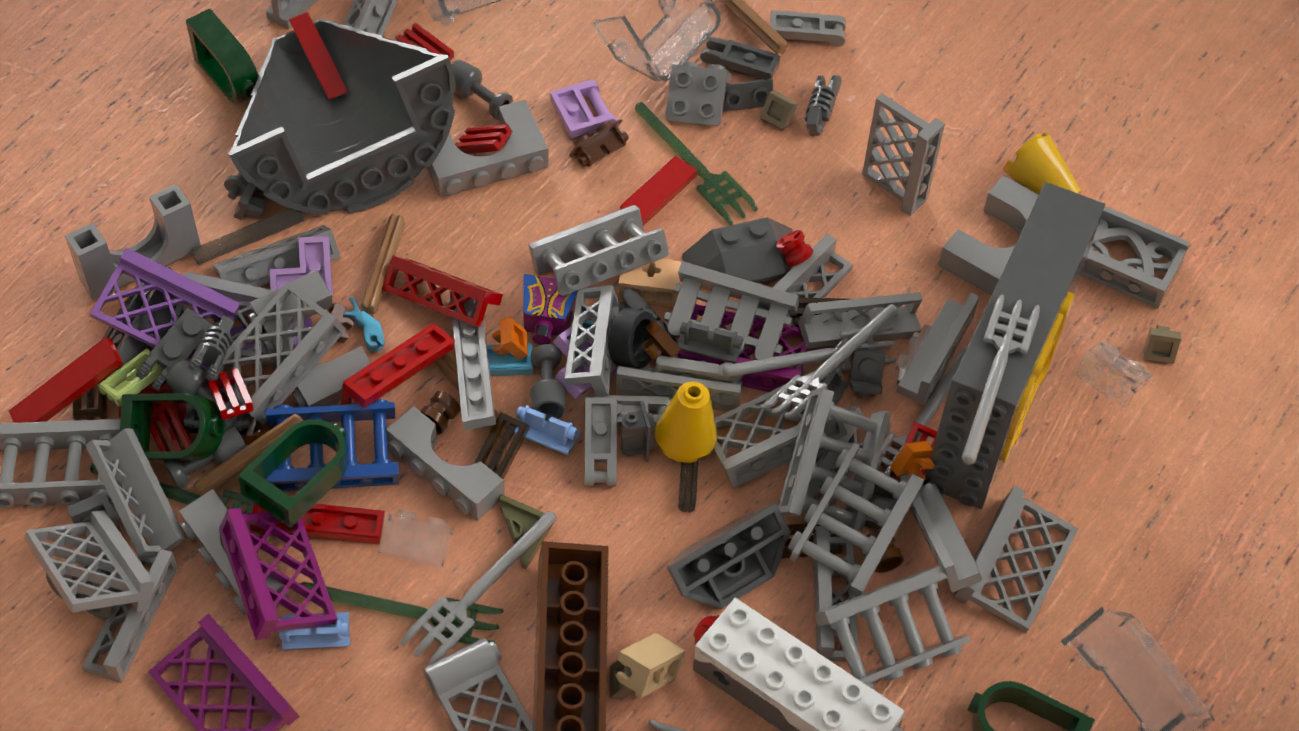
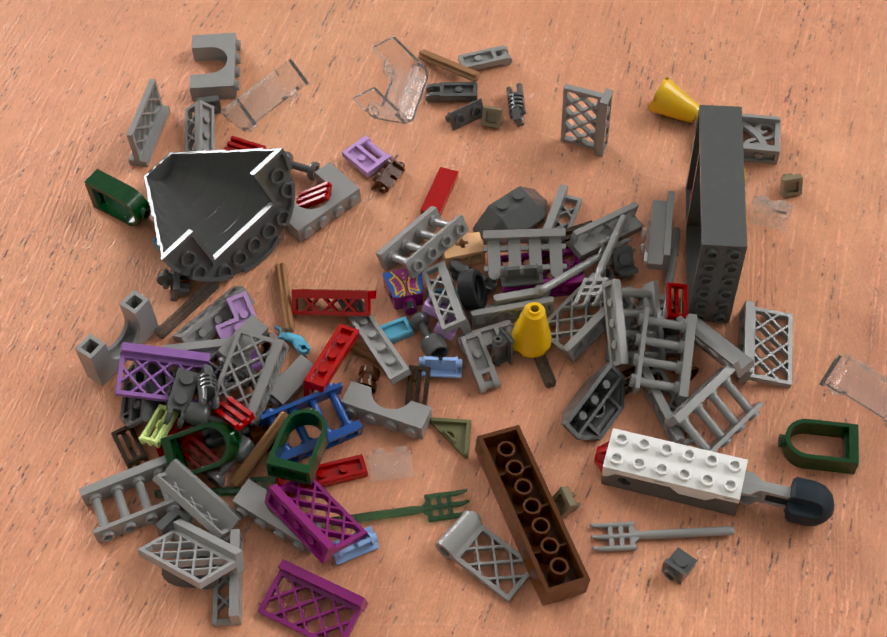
camera: 15 degrees left, 0 degrees up
(68, 384) = (117, 445): red tile -> none
(318, 55) = (179, 177): red sticker -> none
(457, 609) = (439, 499): light grey piece -> none
(511, 339) = (394, 317): orange tile -> none
(652, 664) = (579, 486): tan hinge -> none
(660, 341) = (490, 286): reddish brown tile -> none
(697, 93) = (436, 123): light grey bracket -> none
(710, 180) = (469, 175): clear green piece -> none
(794, 248) = (545, 199): red wheel -> none
(912, 458) = (679, 305): orange tile -> none
(981, 263) = (667, 172): light grey arch -> none
(1005, 346) = (724, 213): light grey piece -> none

